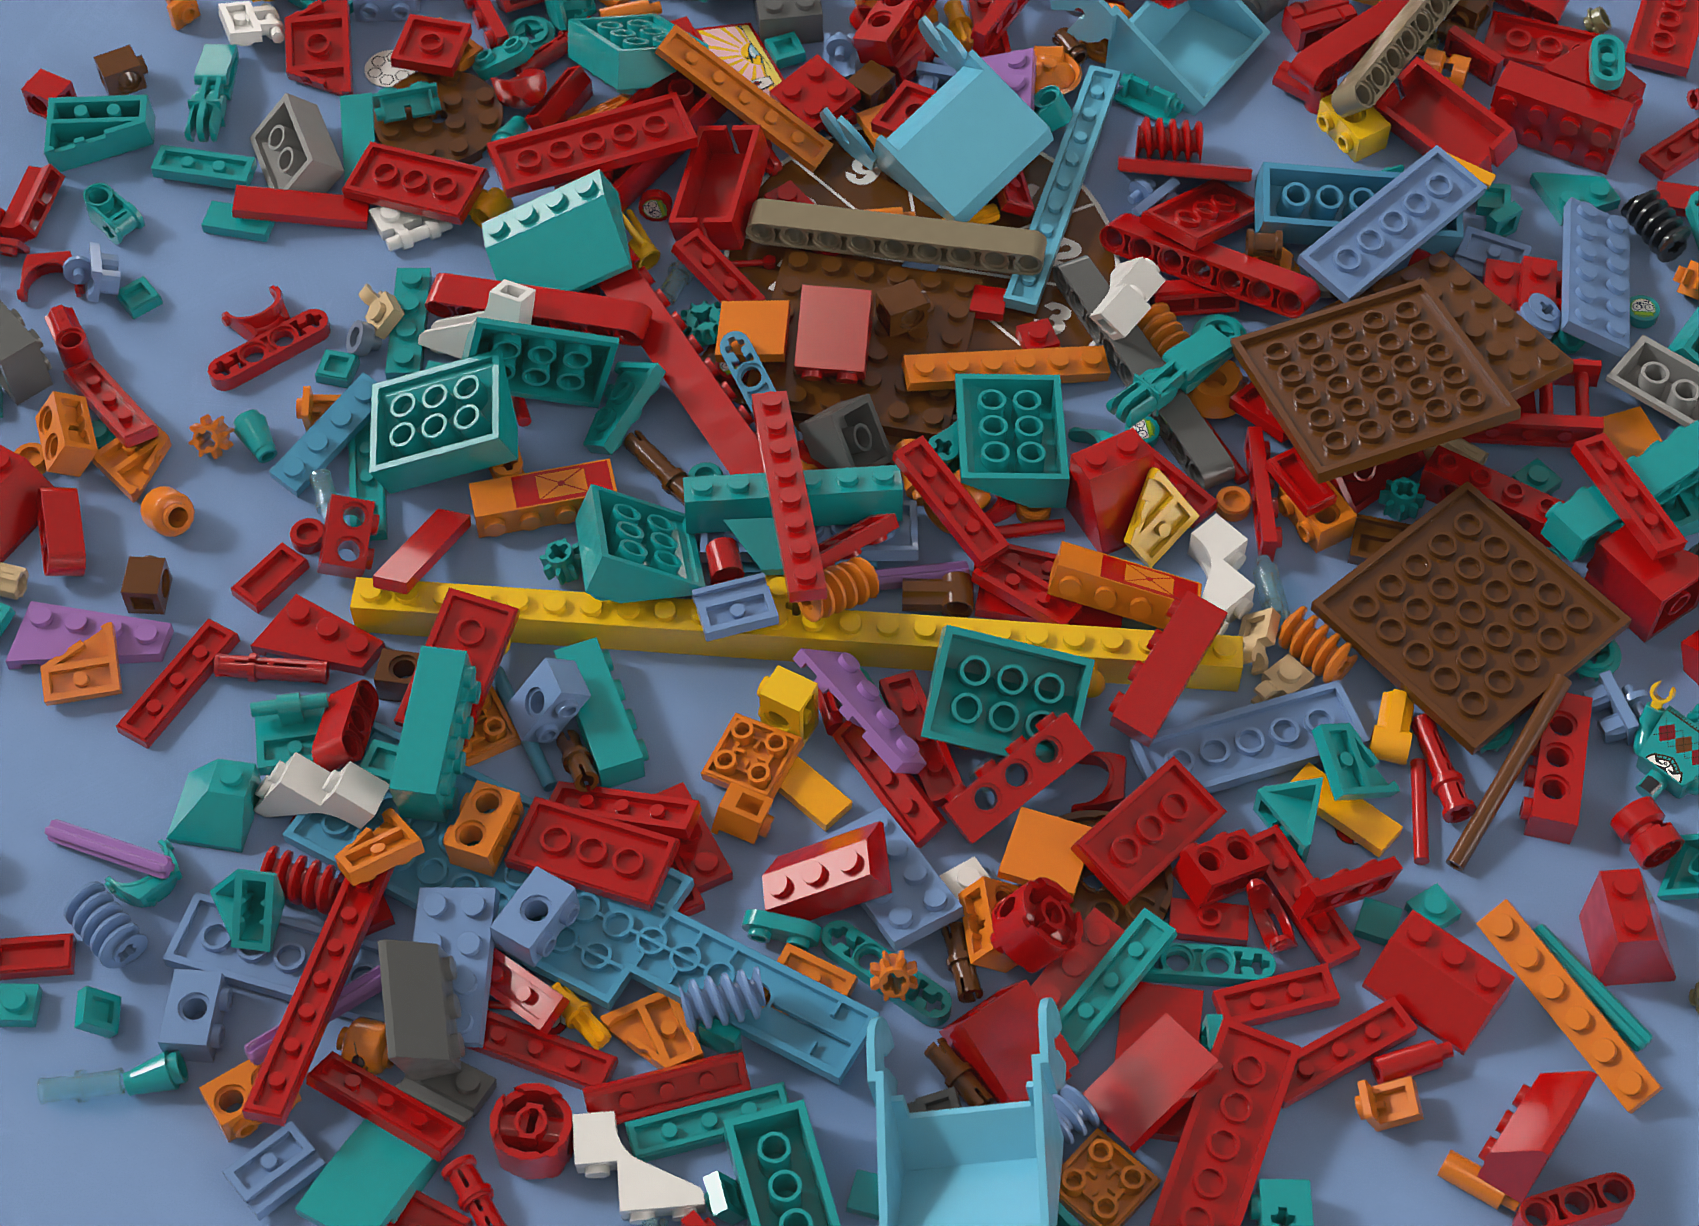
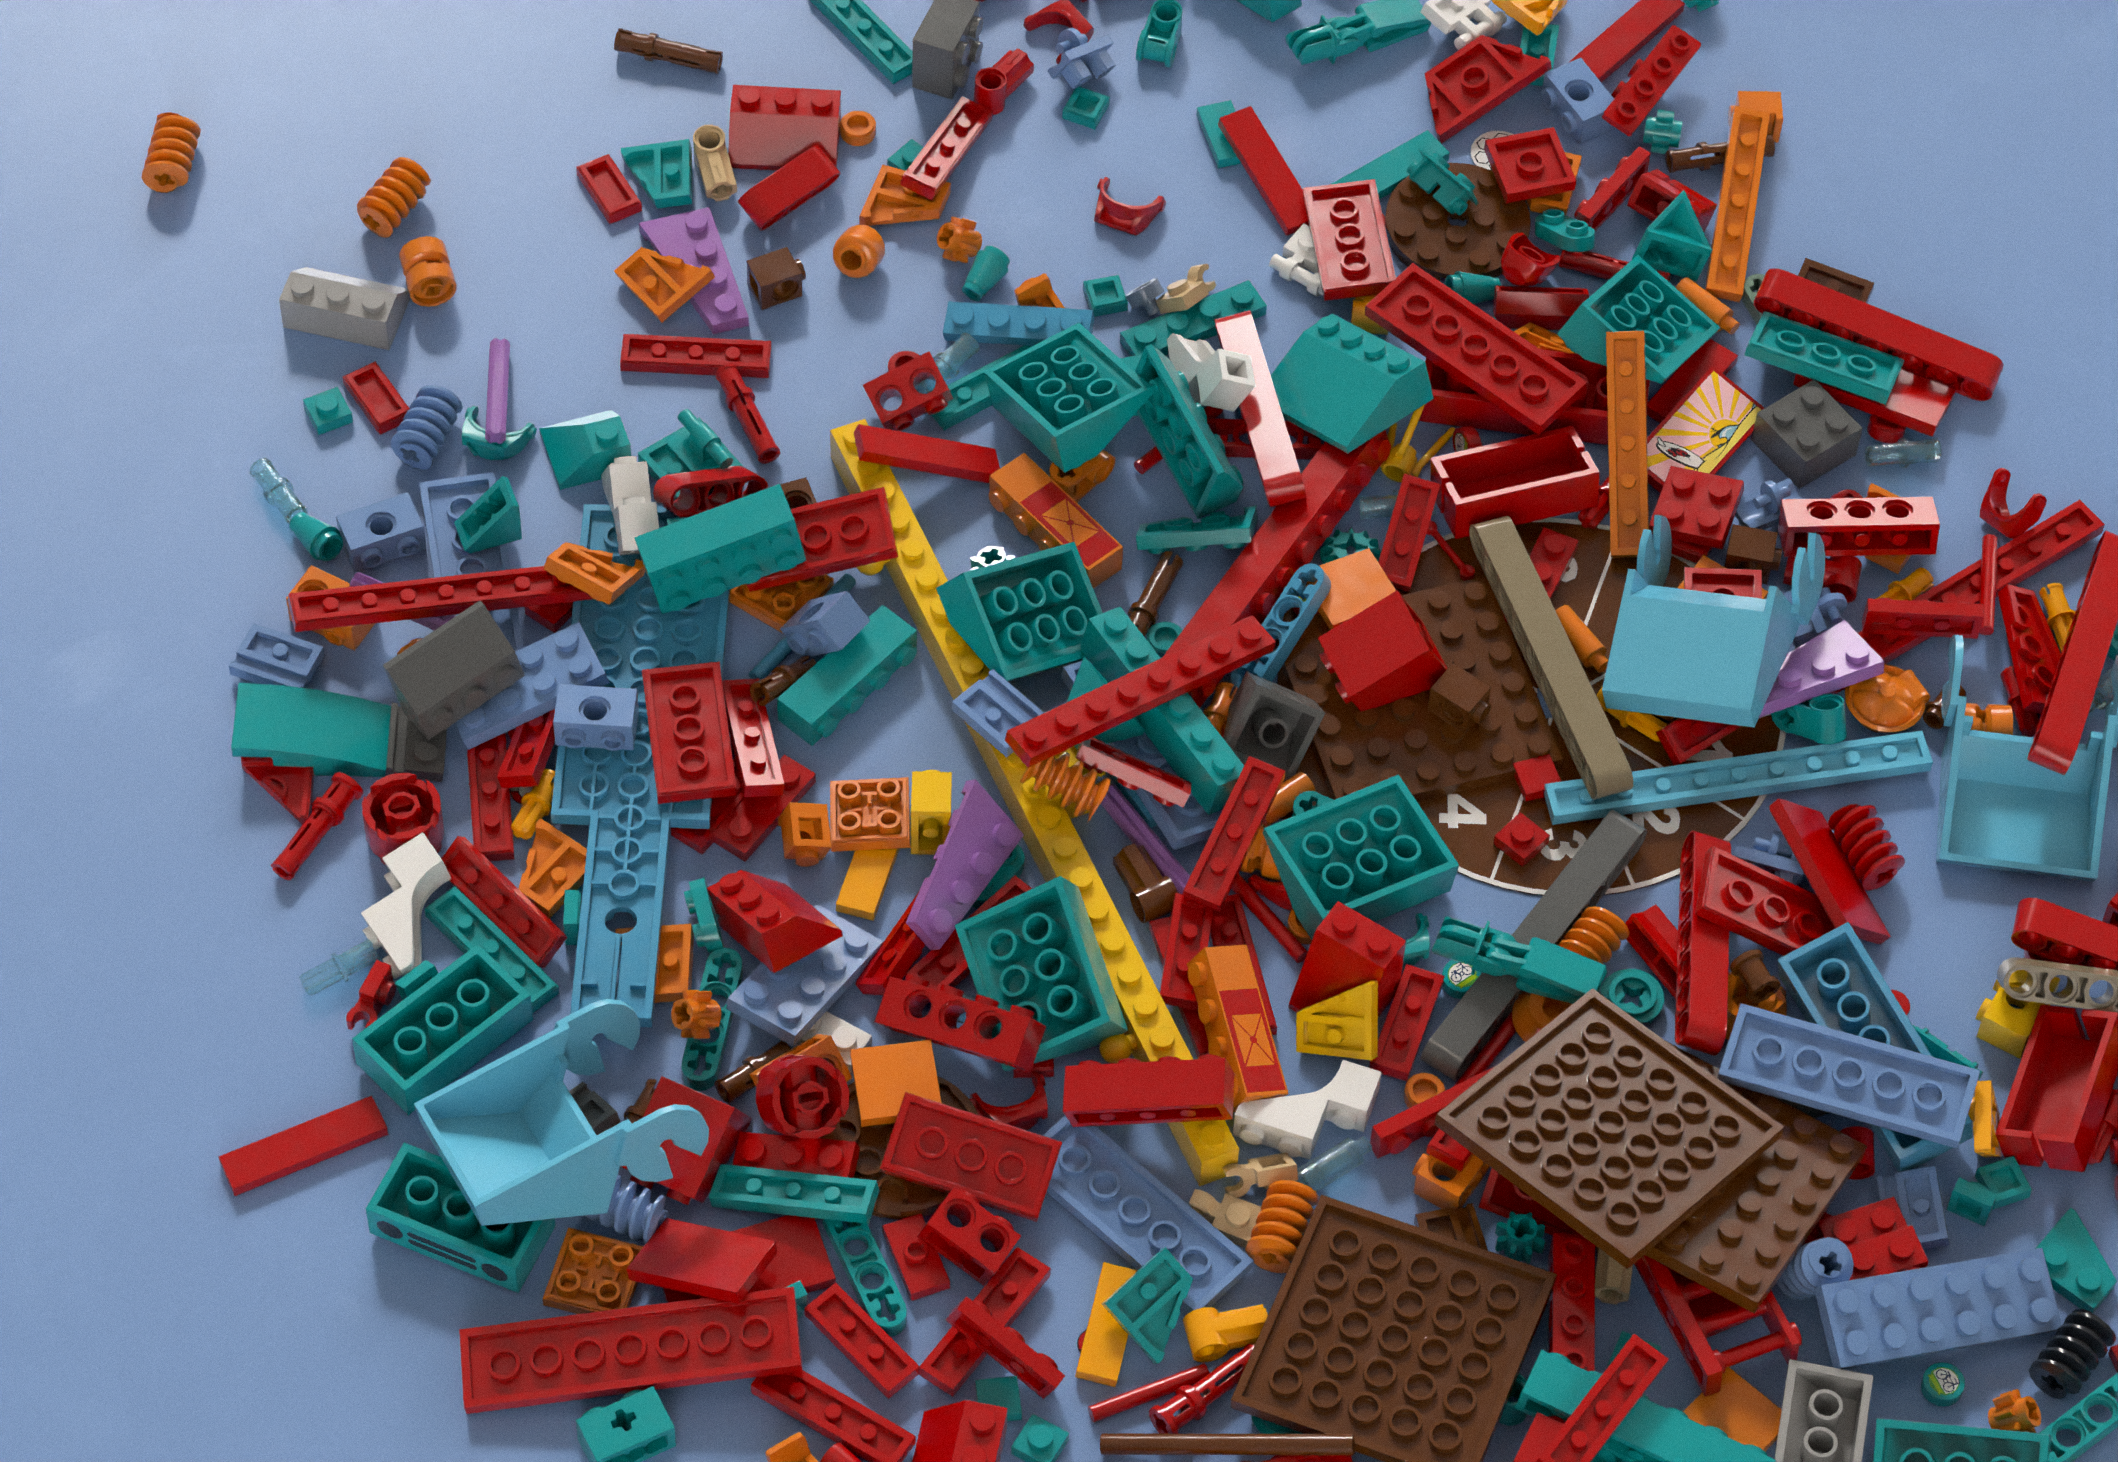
camera: 60 degrees right, 0 degrees up
(66, 434) = (889, 134): orange brick -> none
(97, 1012) = (347, 465): teal plate -> none
(203, 167) = (1266, 73): teal plate -> none
(266, 345) = (1093, 229): red beam -> none
(270, 578) = (843, 363): red tile -> none
(296, 147) = (1335, 132): light grey slope -> none
(301, 883) = (544, 528): red piece -> none
(315, 634) = (802, 430): red wing -> none
(385, 1106) = (369, 706): red tile -> none
(491, 829) = (662, 638): orange brick -> none
(537, 26) = (1615, 229): teal gear -> none
(723, 999) = (587, 887): medium blue piece -> none
(724, 560) = (1051, 686): red piece -> none
(785, 50) = (1752, 459): teal plate -> none
(1072, 364) = (1457, 824): orange plate -> none
(1126, 302) = (1599, 881): white arch -> none
(1150, 102) = (1918, 806): teal hinge -> none
(1262, 903) = (932, 1320): red helmet -> none
(1293, 809) = (1066, 1280): teal slope -> none

